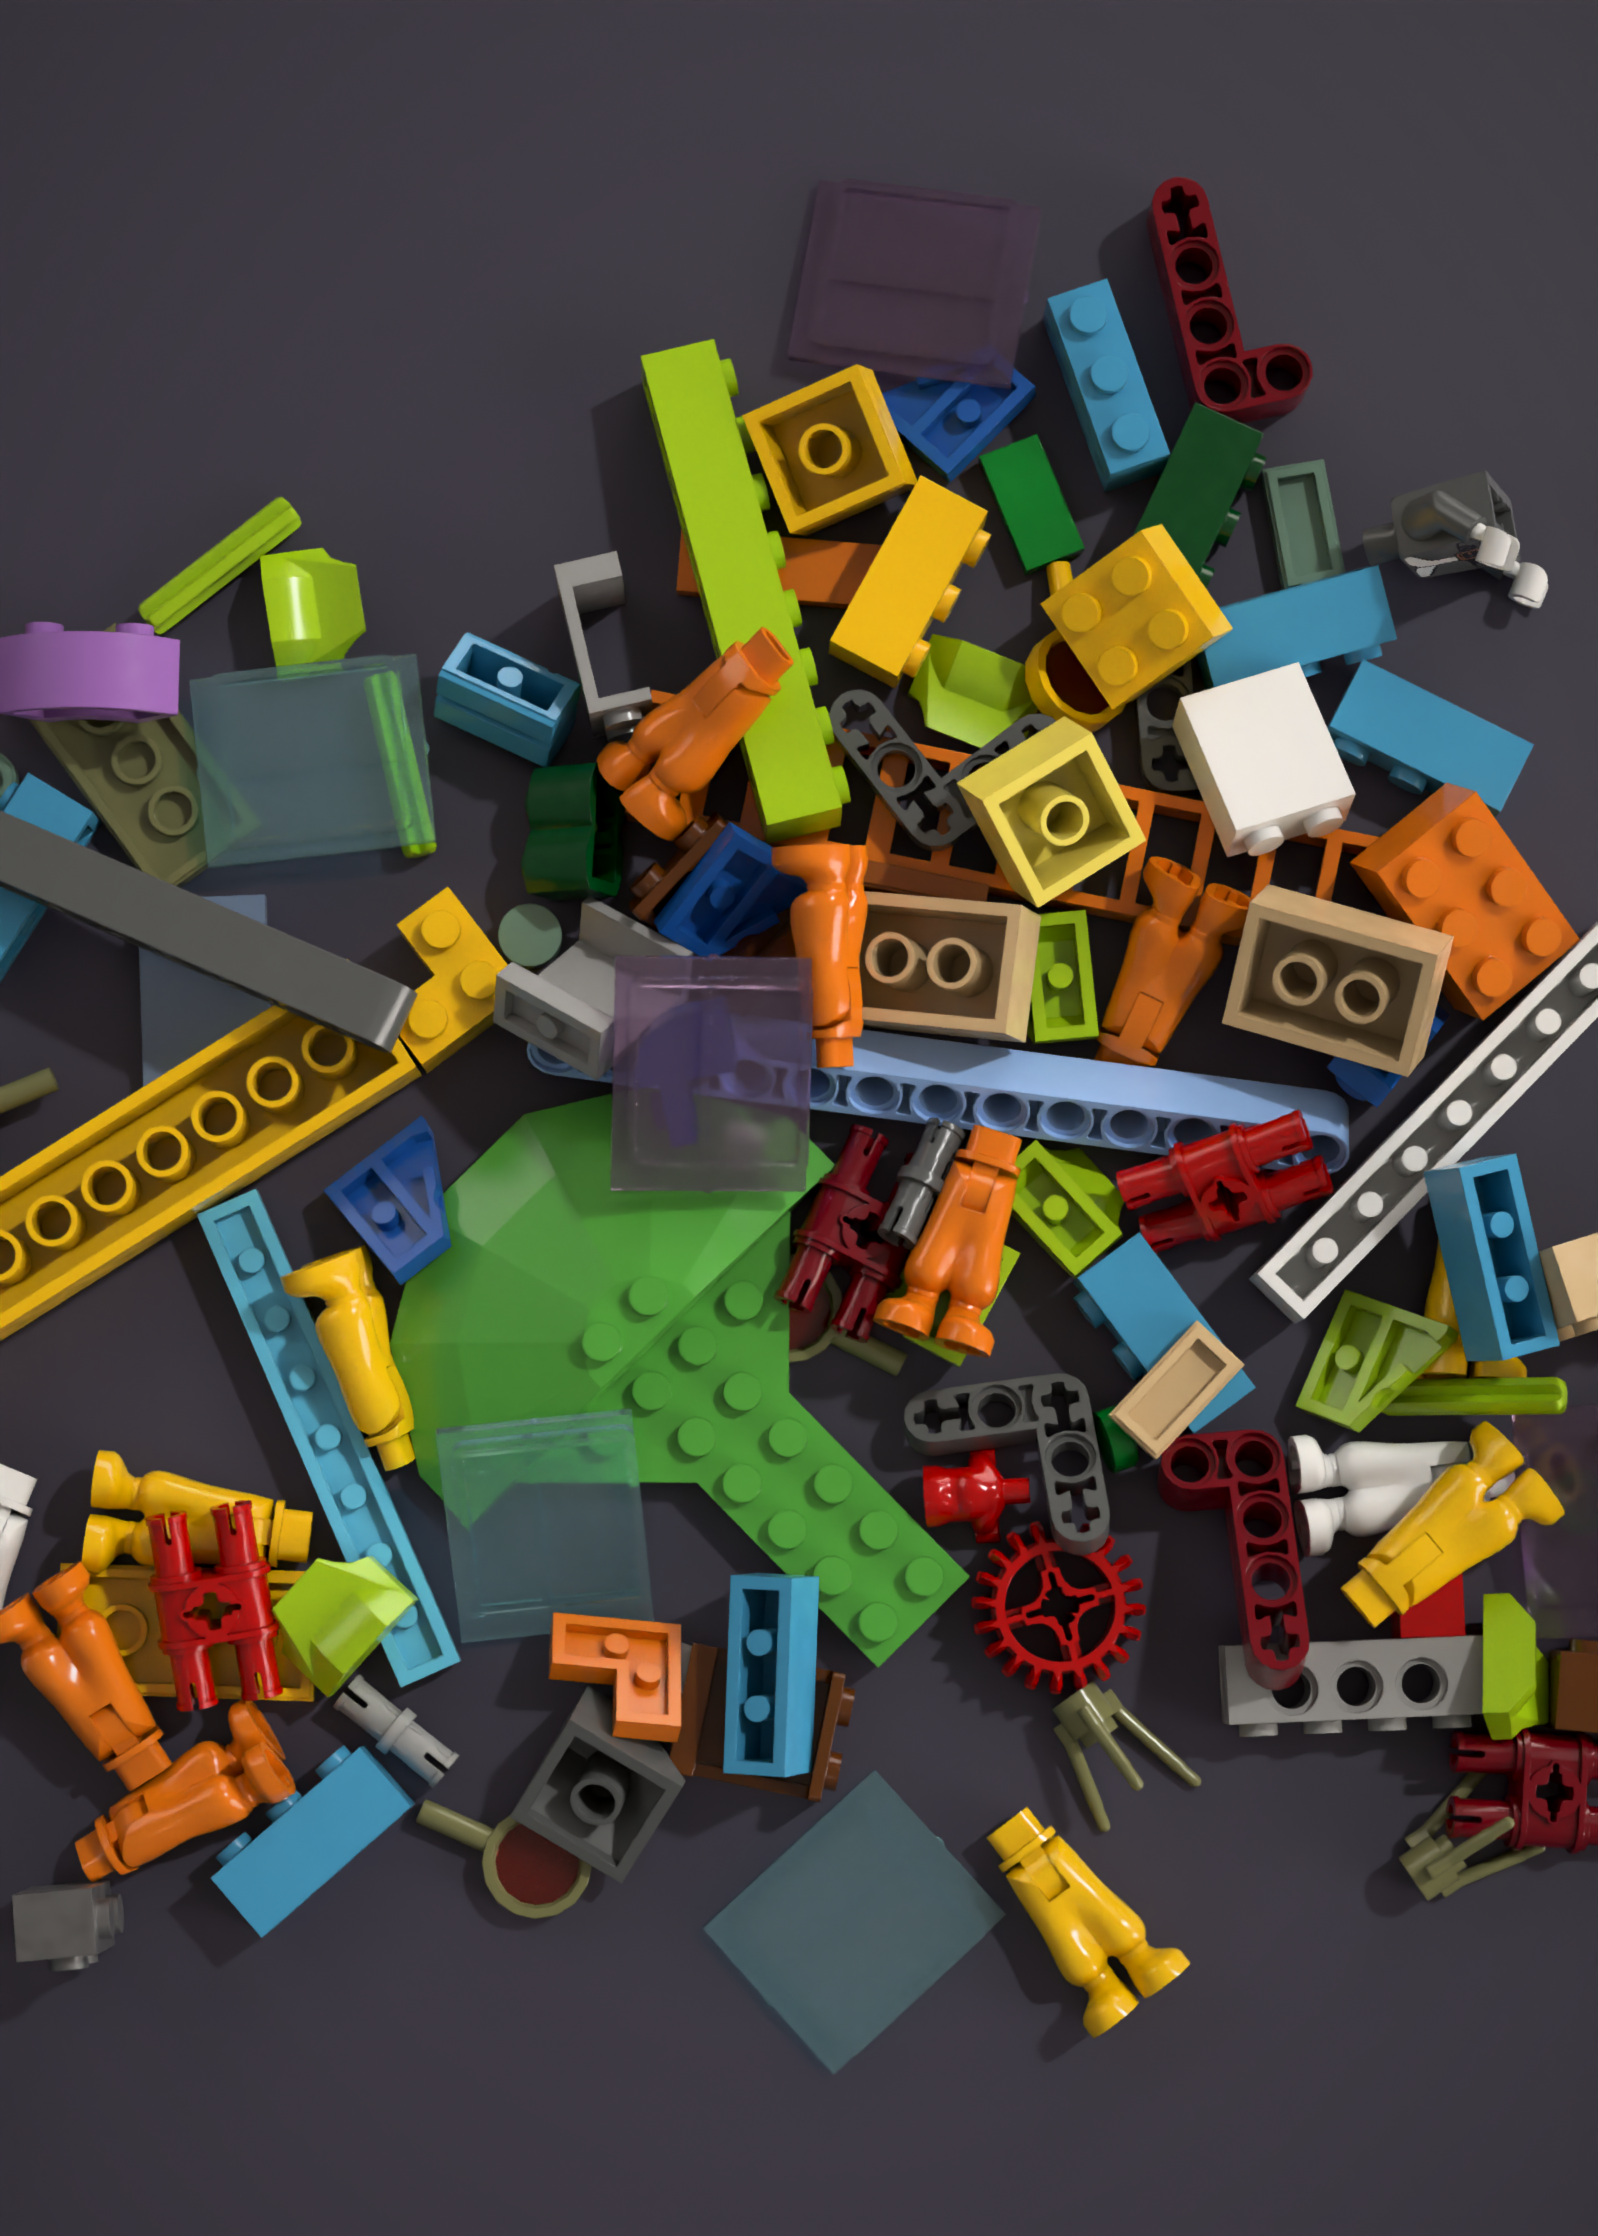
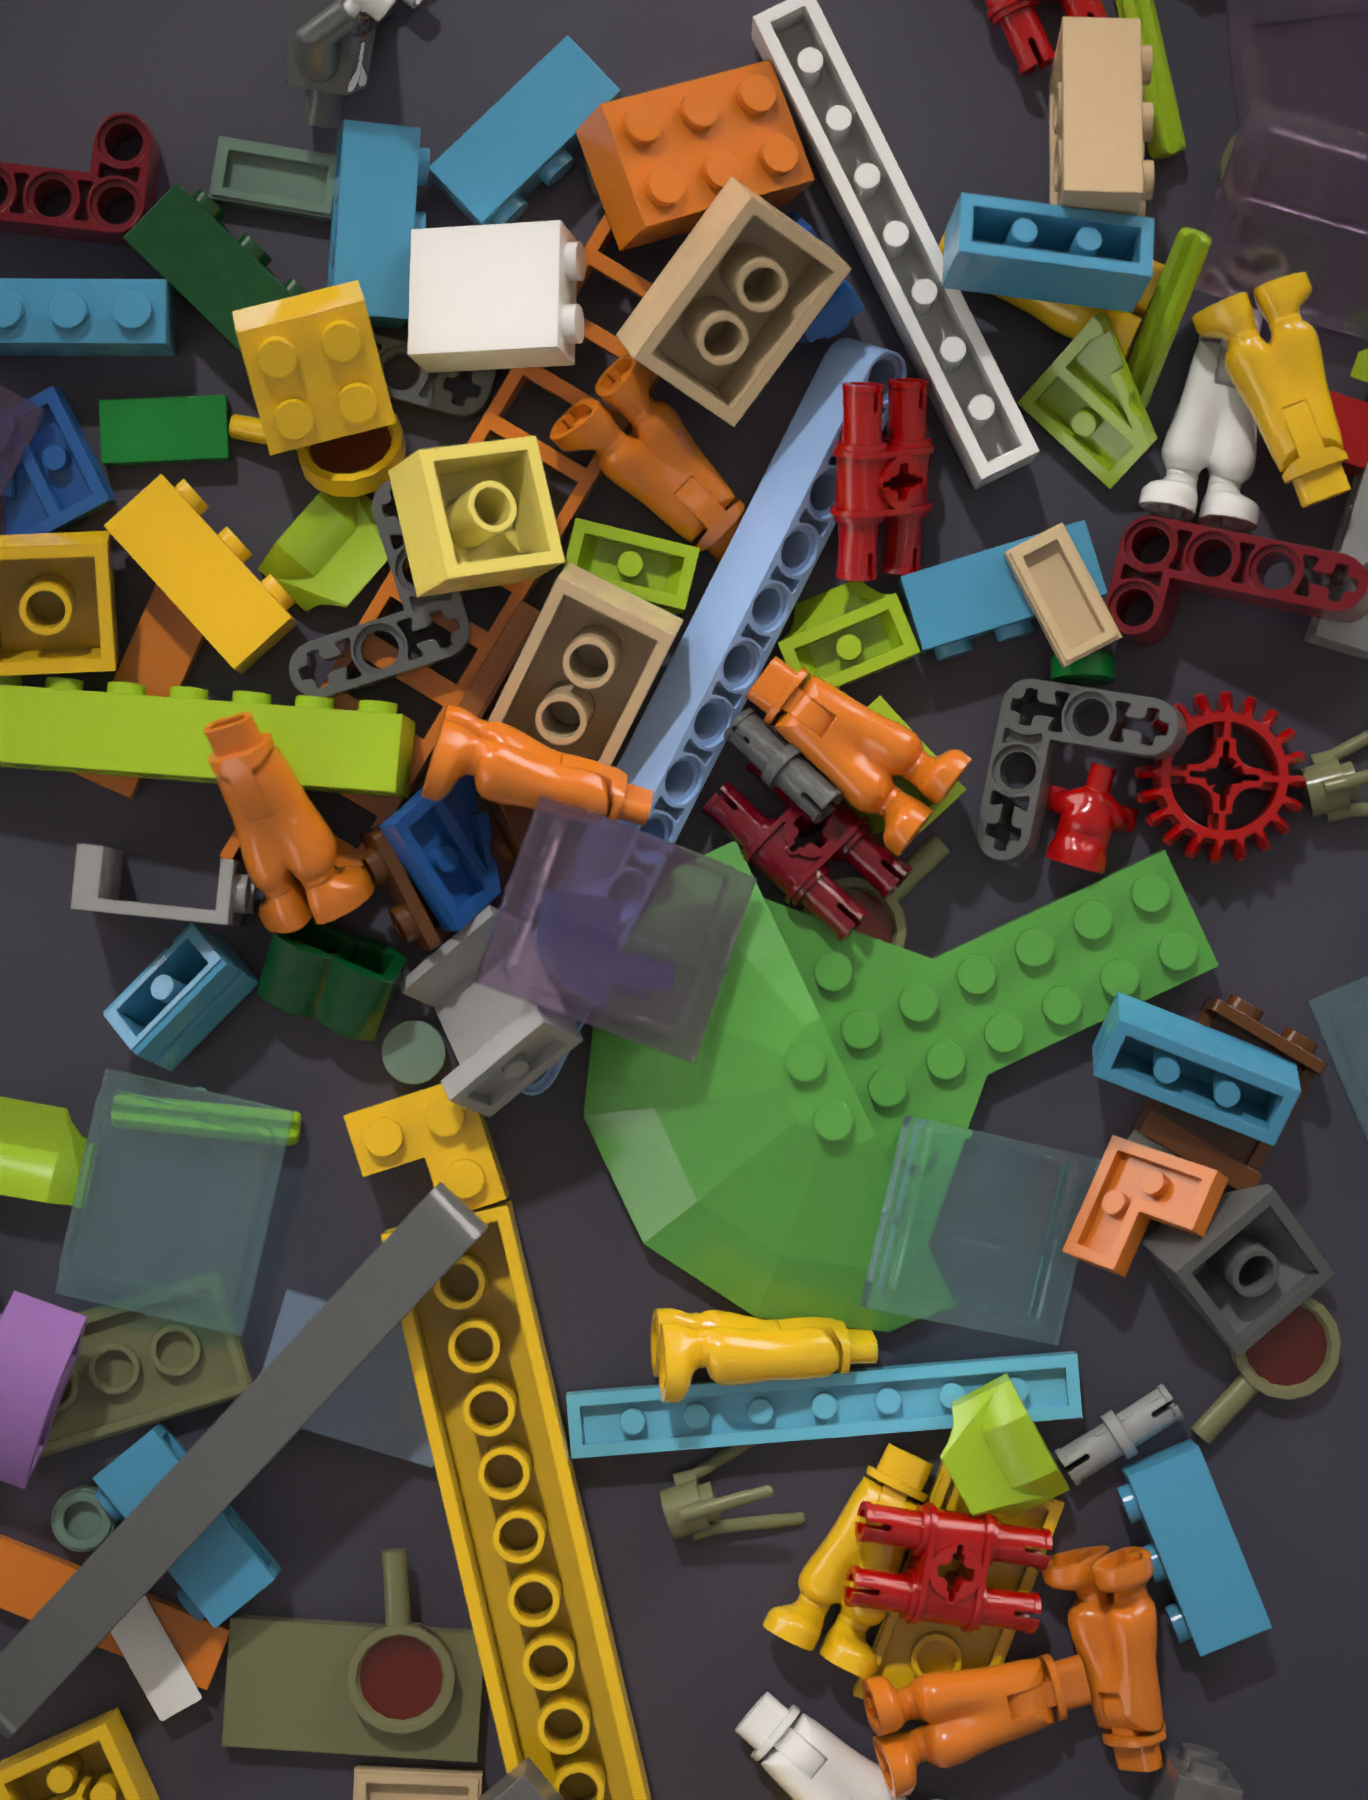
camera: 65 degrees left, 5 degrees up
(189, 1348) = (695, 1508): none -> olive plant
(397, 1201) = (625, 1264): blue wing -> none

